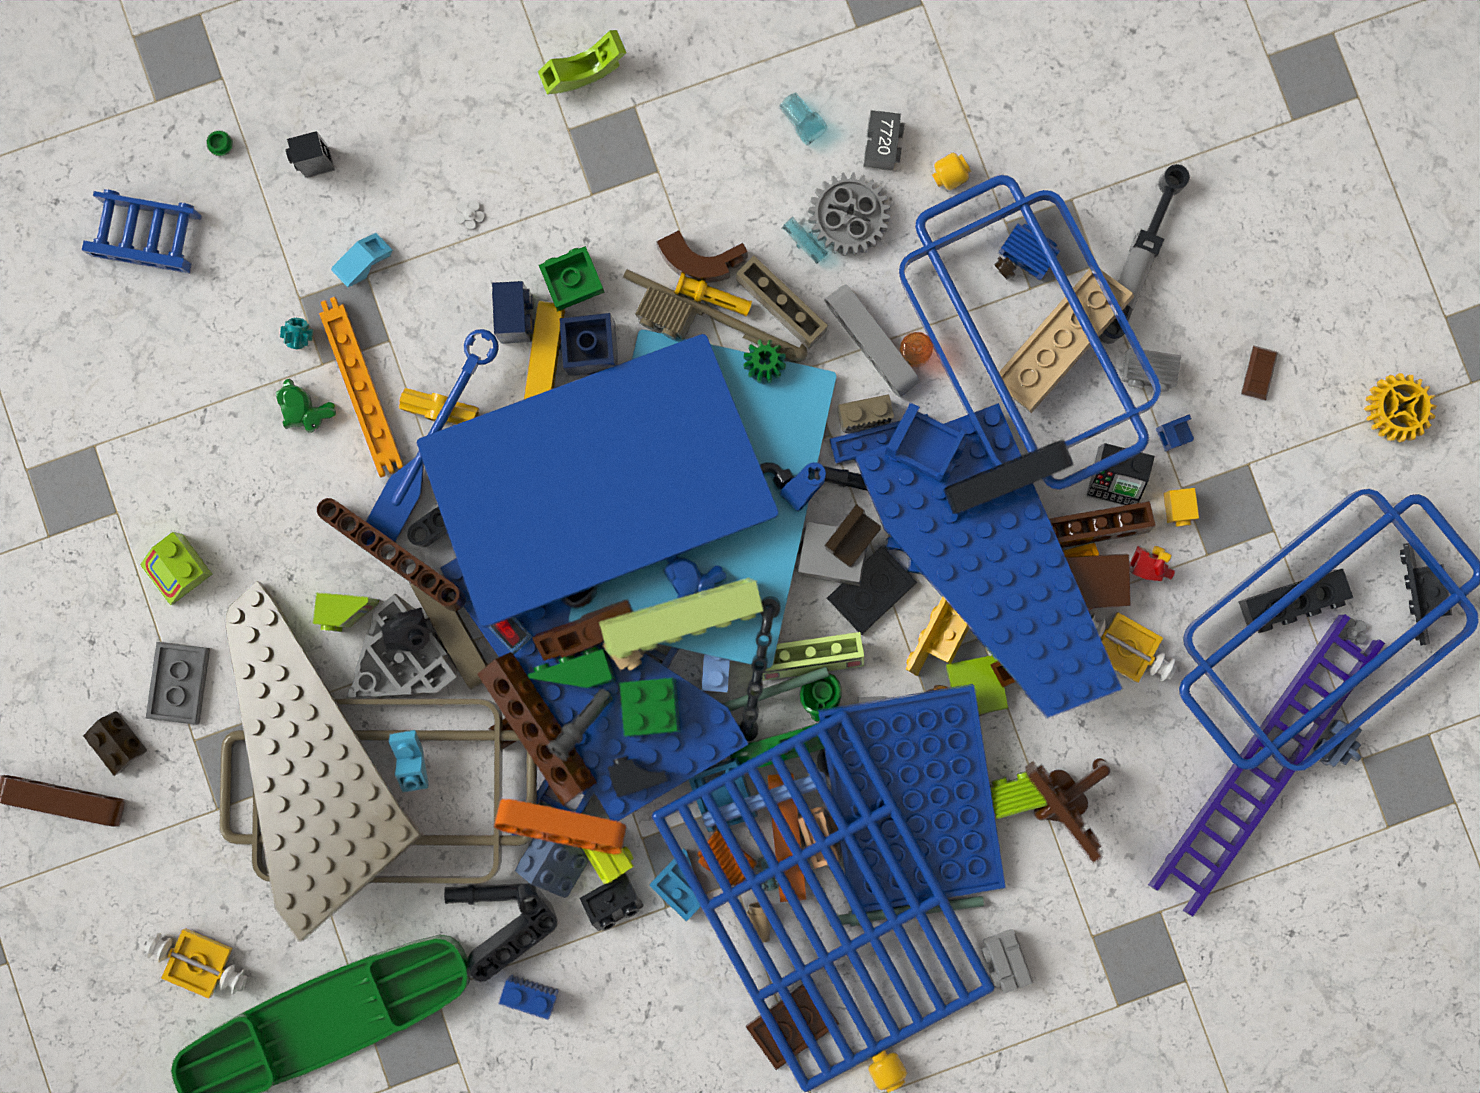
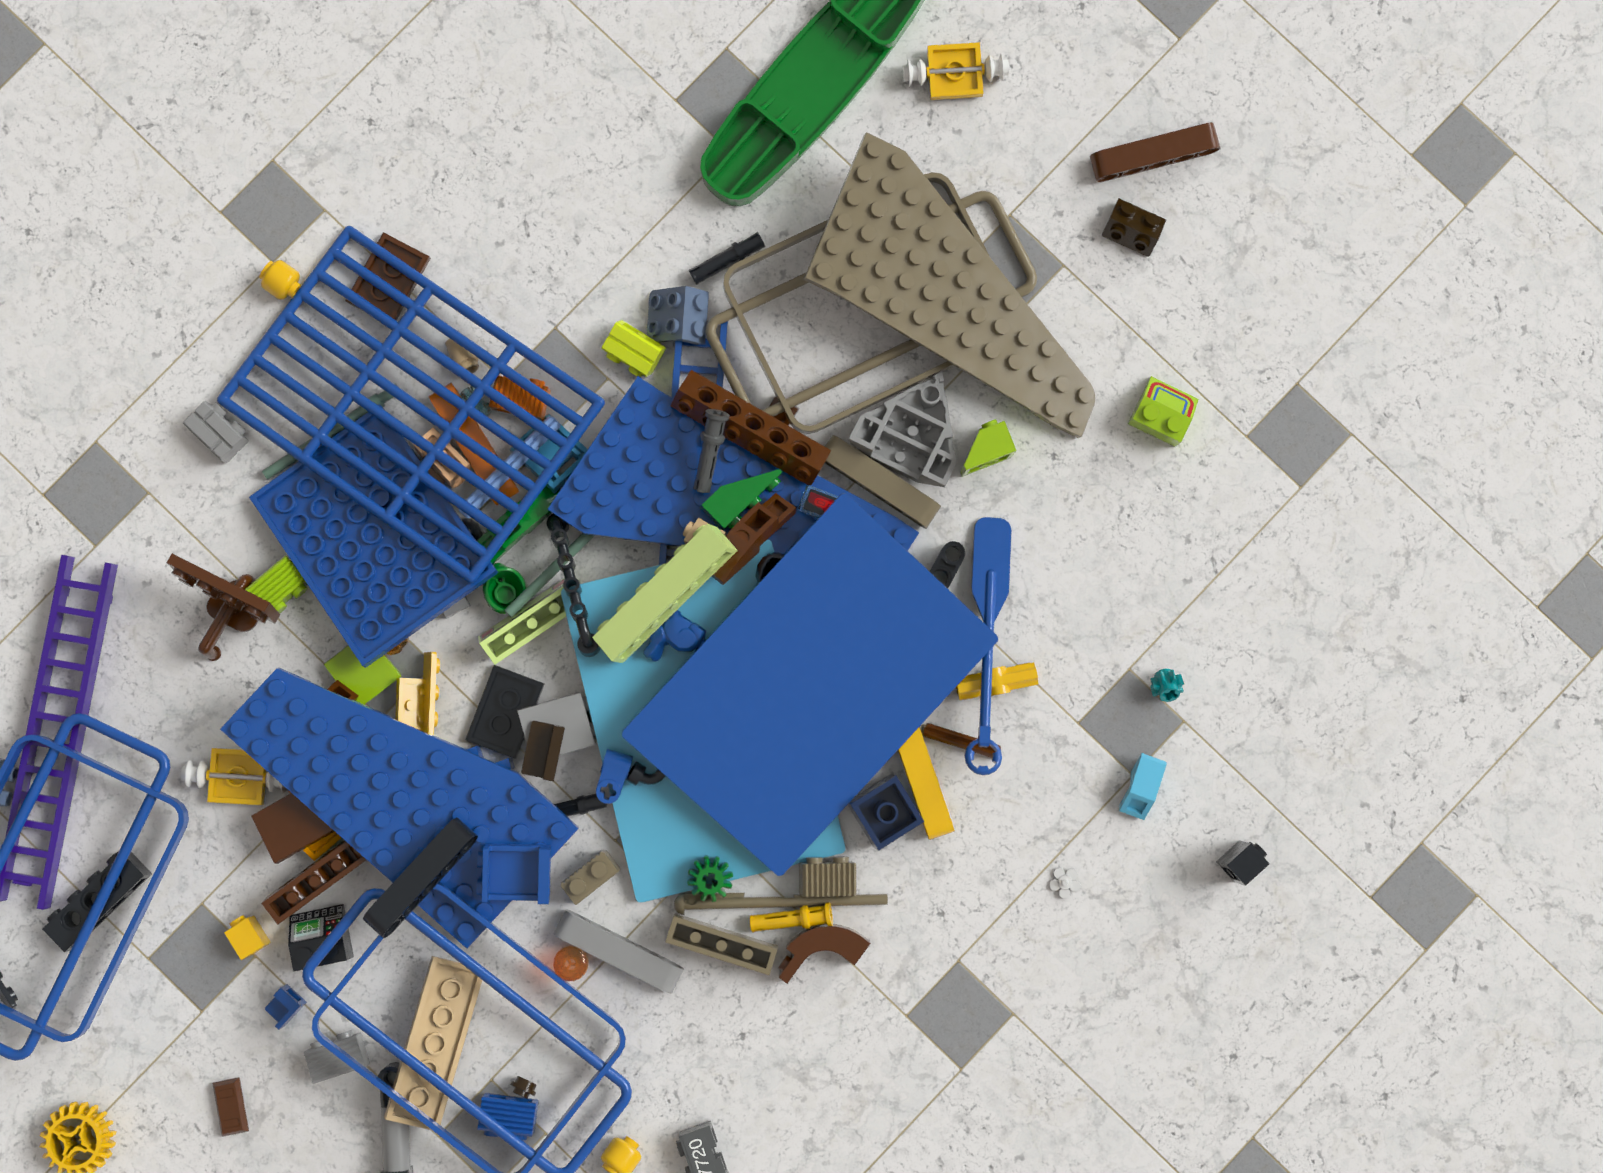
camera: 155 degrees right, 0 degrees up
(150, 255) = (1369, 683): blue fence -> none
(177, 683) = (1106, 309): flat silver tile -> none
(219, 143) = (1338, 831): green plate -> none
(298, 408) = (1127, 614): green animal -> none
(360, 387) = (1081, 665): light orange hinge -> none
(382, 546) = (981, 521): reddish brown beam -> none
(407, 631) = (915, 457): black hand -> none
(410, 761) = (852, 341): medium azure slope -> none
(486, 959) = (678, 233): black beam -> none
(499, 377) = (955, 739): none -> reddish brown axle
(512, 312) = (972, 805): dark blue brick -> none
(528, 997) = (639, 186): blue brick -> none
(560, 826) = (683, 349): orange beam -> none
(571, 278) = (933, 867): green plate -> none
(574, 72) = (1027, 1082): lime arch -> none
(611, 903) = (606, 306): black bracket -> none
(631, 777) = (638, 424): black arch -> none
(650, 707) = (653, 497): green brick -> none
(675, 890) = (553, 346): dark azure wing -> none
(715, 674) = (611, 558): light blue brick -> none
(804, 240) = (730, 1017): clear light blue pin -> none
(806, 123) = (784, 1135): clear light blue piece -> none
(854, 444) = (577, 850): blue tile -> none
(857, 193) = (702, 1090): light grey gear -> none
(1151, 565) = (250, 864): red piece -> none
(1354, 631) = (28, 898): light grey plant -> none

